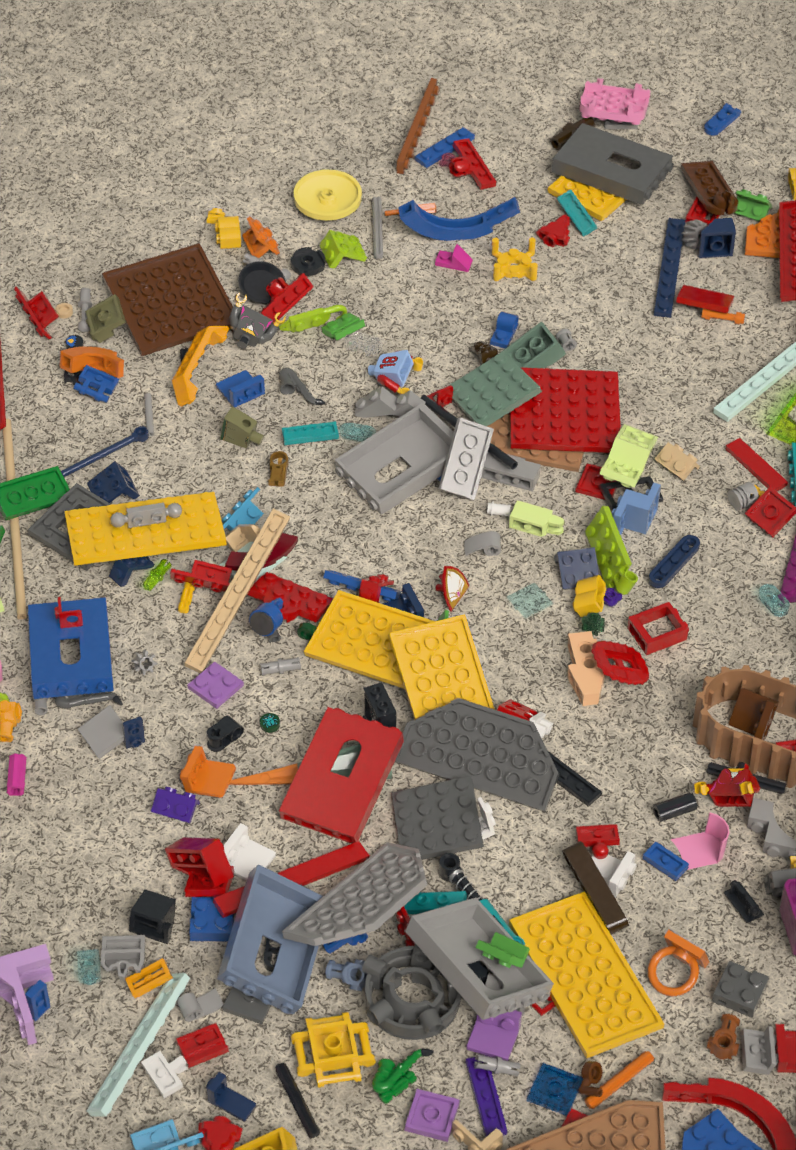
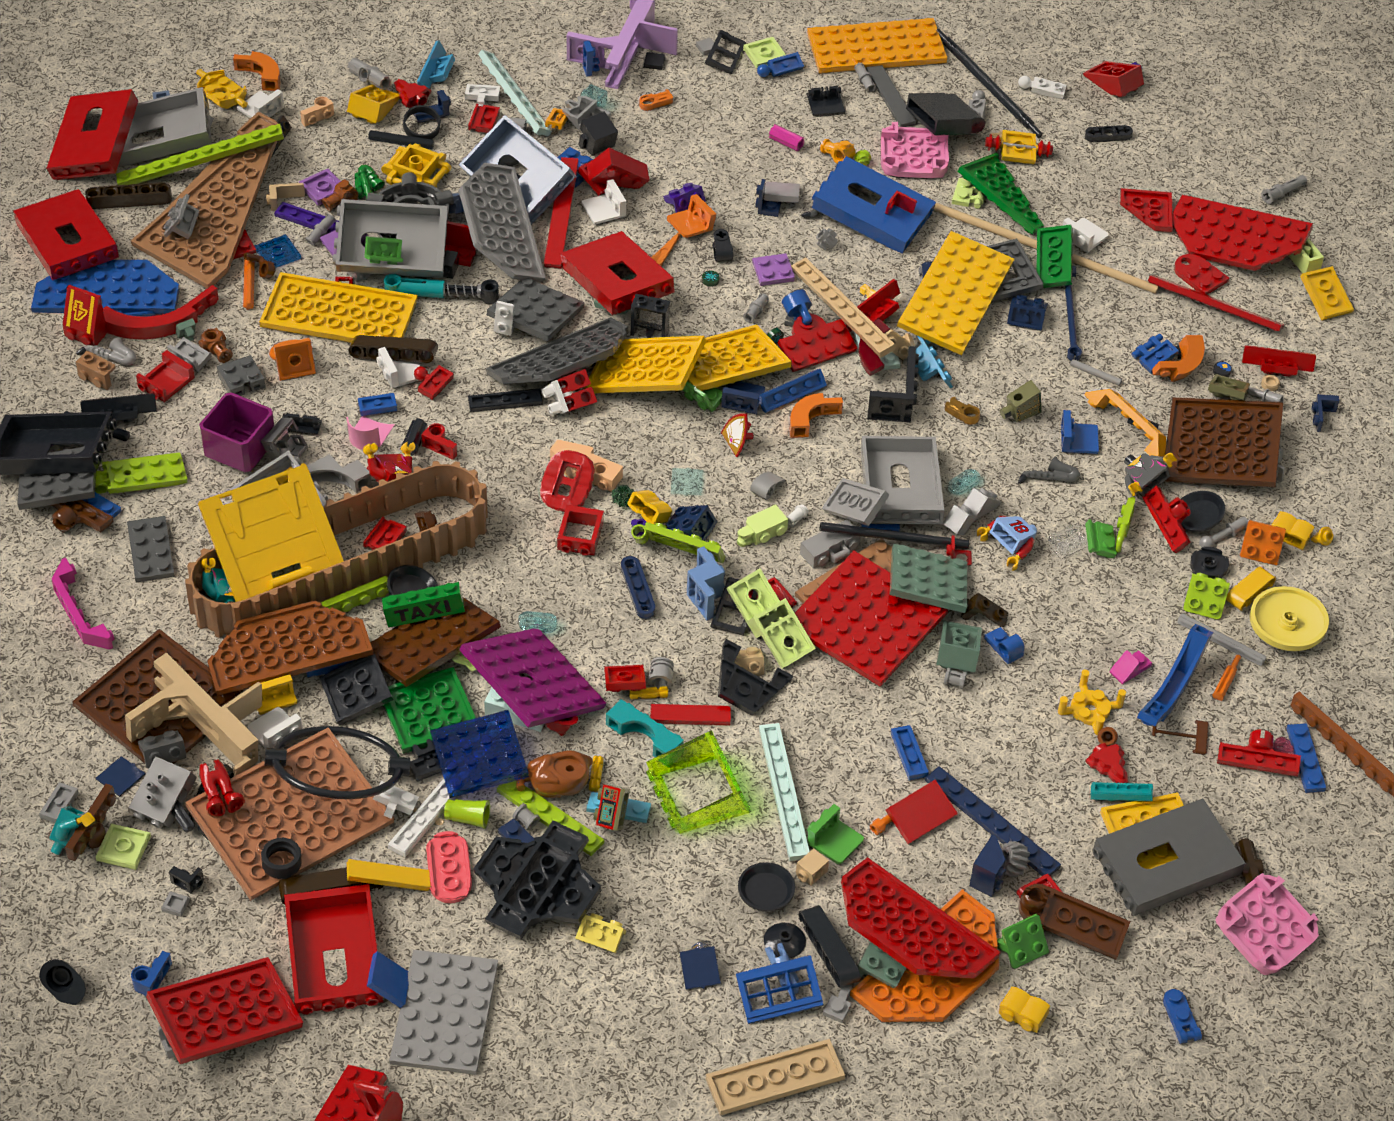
camera: 125 degrees right, 0 degrees up
(41, 914) = (658, 100): none -> orange piece
(76, 267) = (1322, 404): none -> dark blue bracket
(146, 515) = (950, 299): light grey plate -> none
(156, 575) = (908, 286): clear neon green axle -> none
(256, 1108) = (421, 109): none -> black tyre
(310, 228) = (1250, 587): none -> yellow beam
(310, 433) = (987, 450): teal plate -> none
(318, 493) = (896, 406): none -> black bracket
(371, 586) = (781, 391): red bracket -> none
(379, 562) = (808, 409): none -> orange arch
(431, 1079) = (342, 190): none -> dark orange connector
(433, 900) = (470, 269): teal plate -> none
(481, 203) = (1201, 736): none -> reddish brown piece
(539, 240) = (1107, 735): none -> dark orange plate
(659, 332) = (909, 752): none -> blue plate
(662, 786) = (434, 439): none -> red plate
(702, 441) = (743, 687): none -> black wing
(732, 1074) = (186, 329): none -> sand green tile
(775, 332) = (832, 836): none -> bright green bracket

